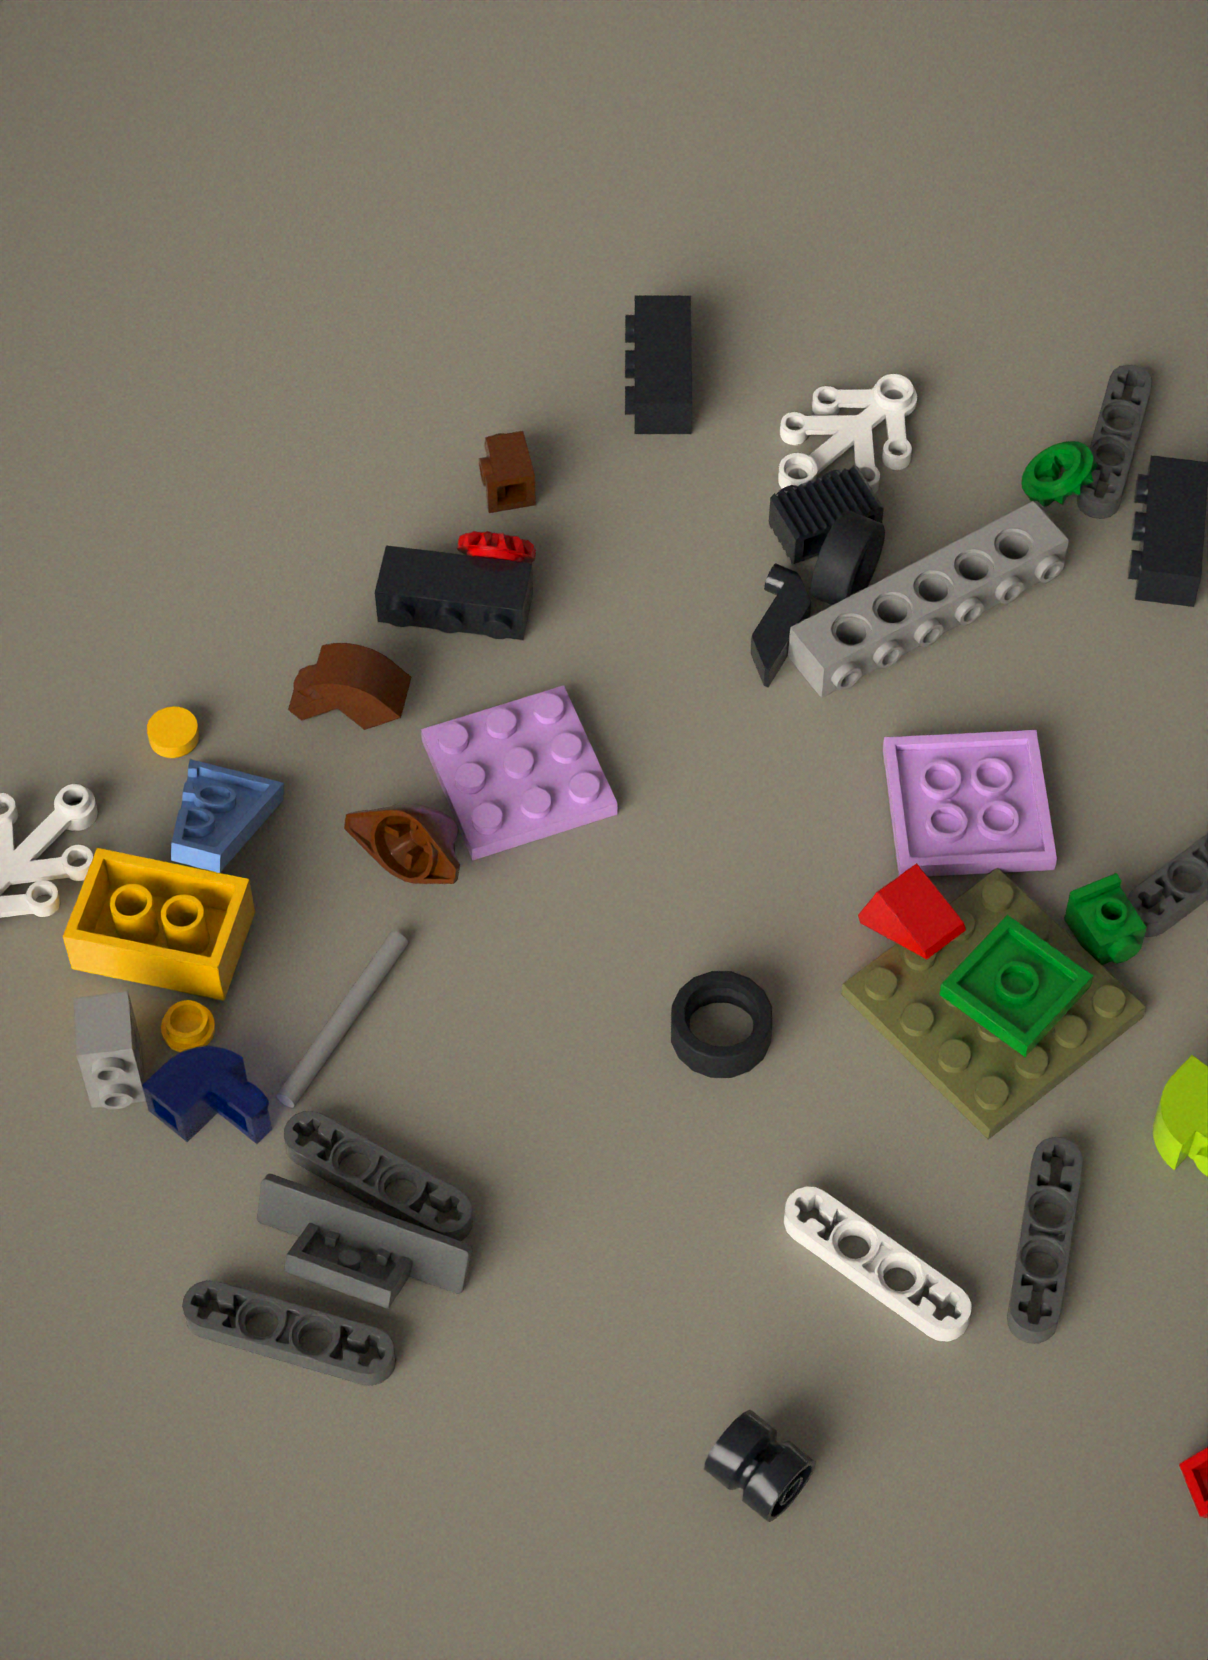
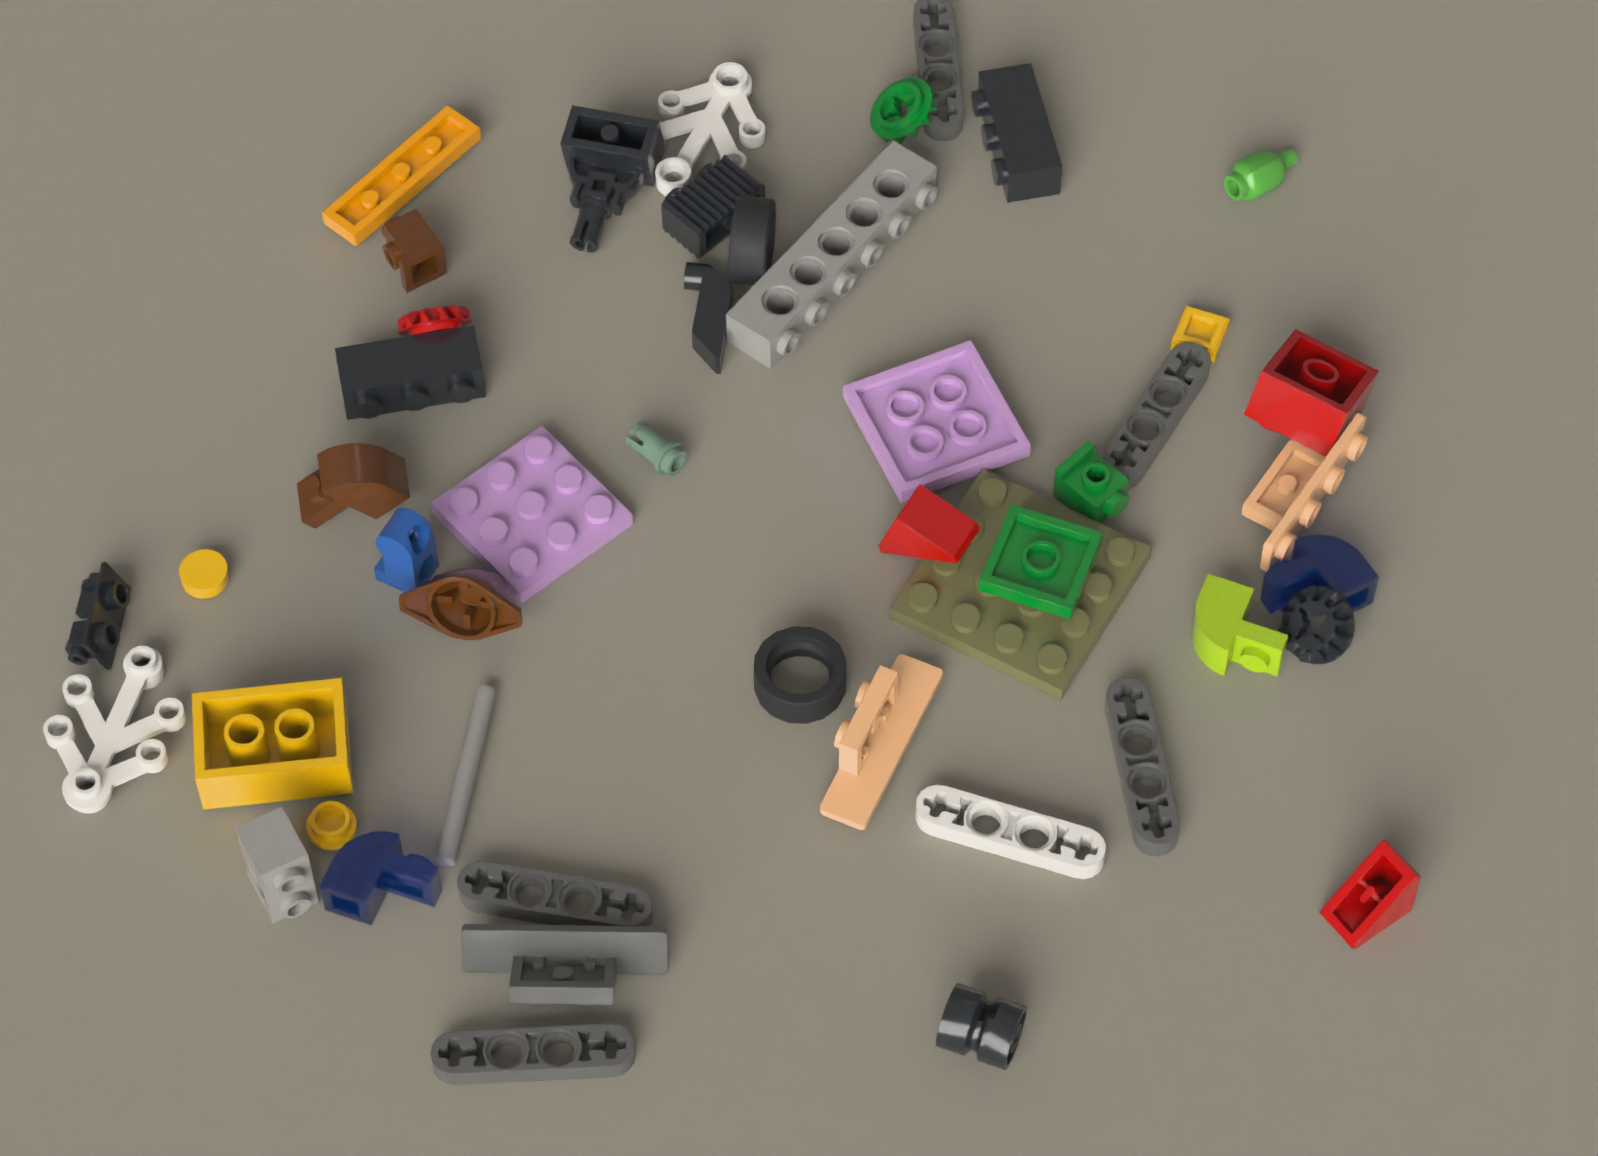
camera: 20 degrees left, 0 degrees up
(57, 744) = (104, 605): none -> black hinge
(220, 814) = (284, 630): medium blue wing -> none
(371, 765) = (406, 546): none -> blue leg
(528, 395) = (401, 175): none -> light orange plate
(659, 364) = (511, 113): black brick -> none
(675, 753) = (664, 454): none -> sand green pin
(733, 443) = (607, 164): none -> black brick
(775, 1115) = (878, 737): none -> light nougat bracket

